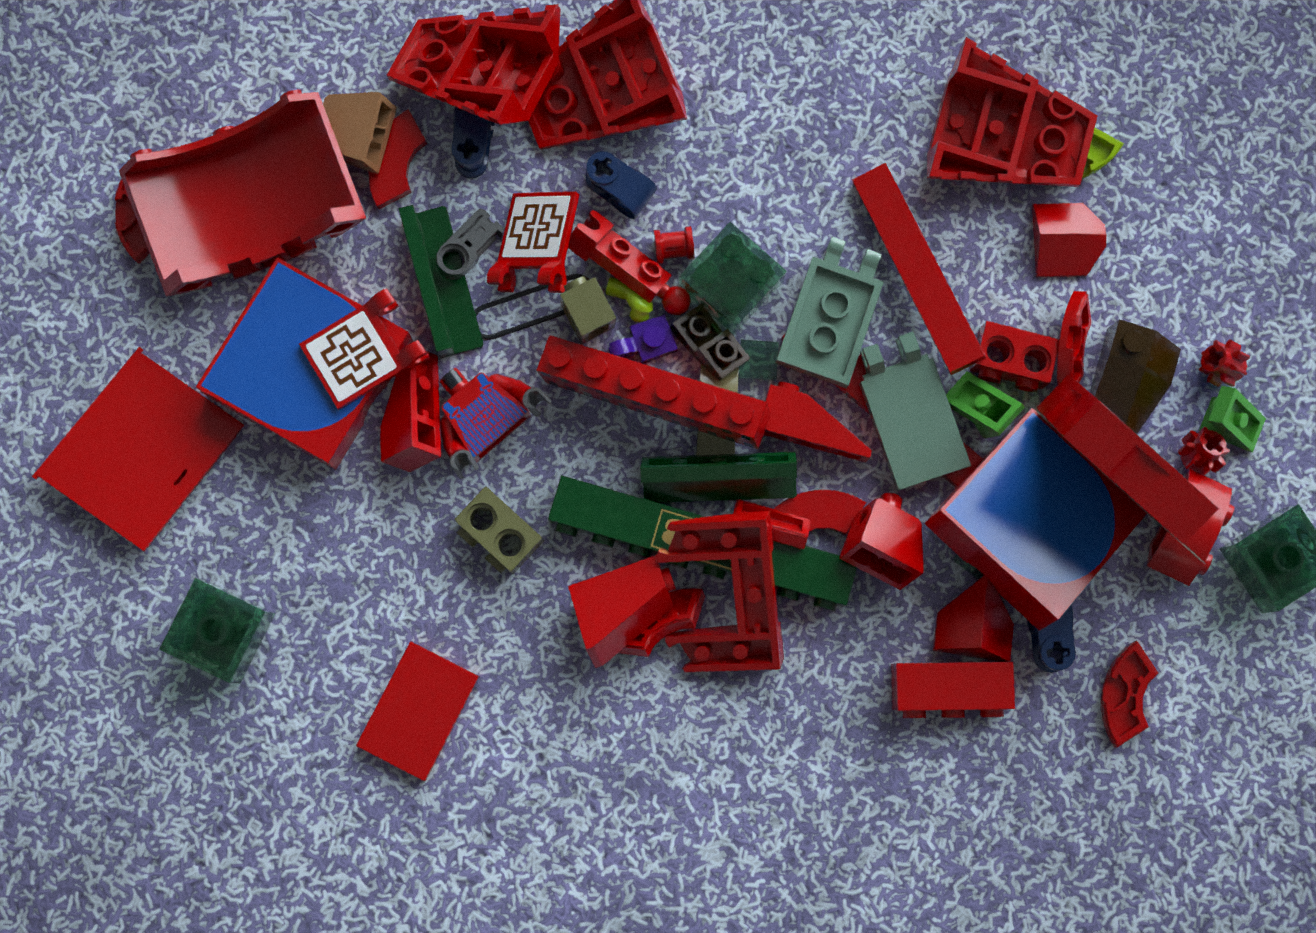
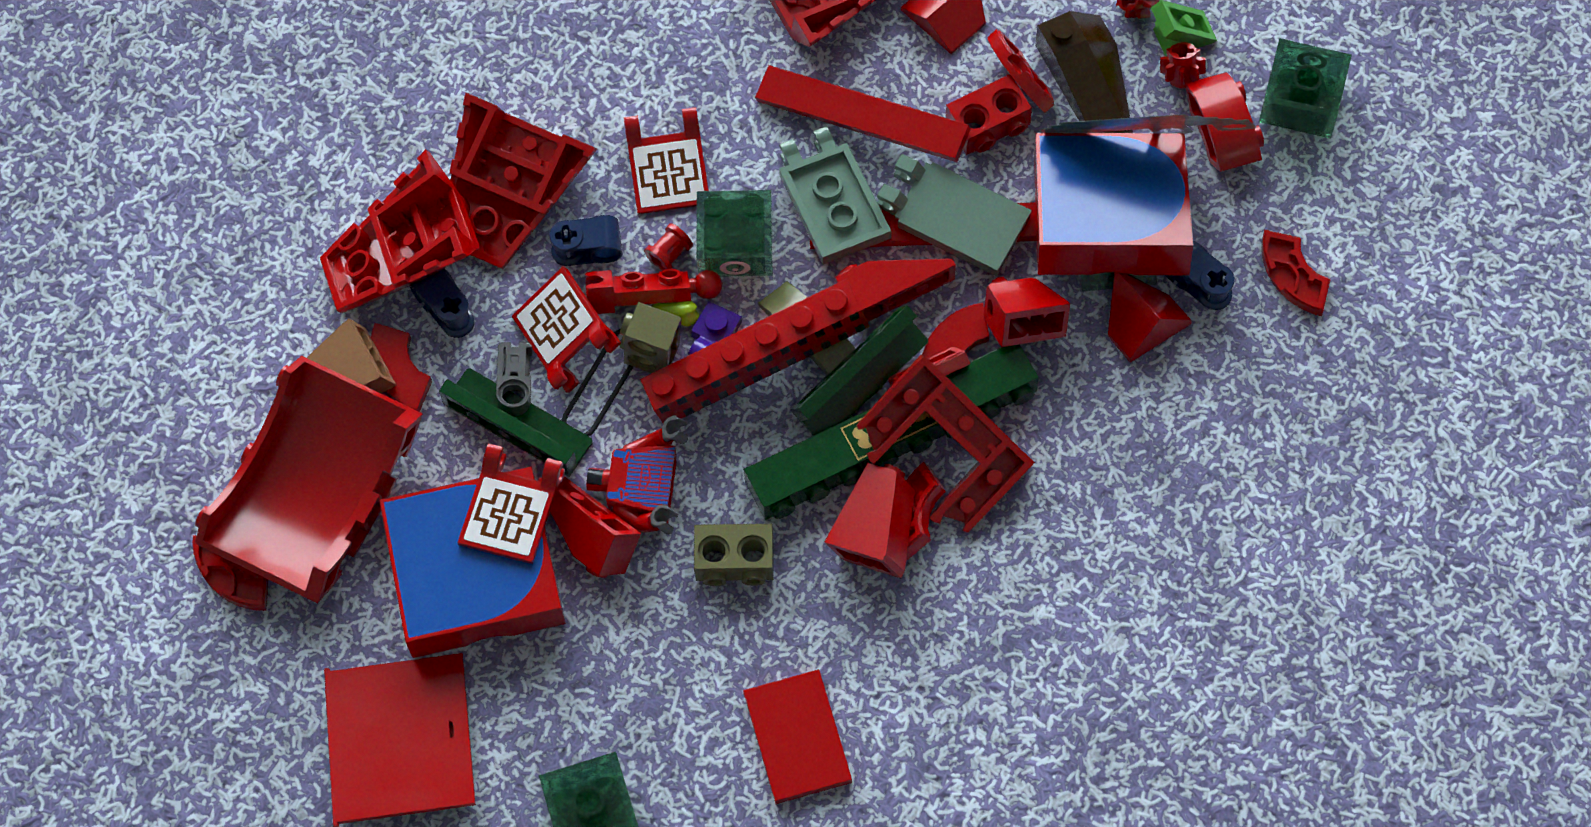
camera: 35 degrees left, 15 degrees down
(708, 343) = (760, 294): dark brown slope -> none
(735, 177) = (666, 167): none -> flag
(761, 362) = (808, 274): tile -> none
(953, 688) = (1168, 371): red brick -> none
(983, 405) = (1001, 163): bright green slope -> none
(1127, 459) = (1131, 90): red tile -> none

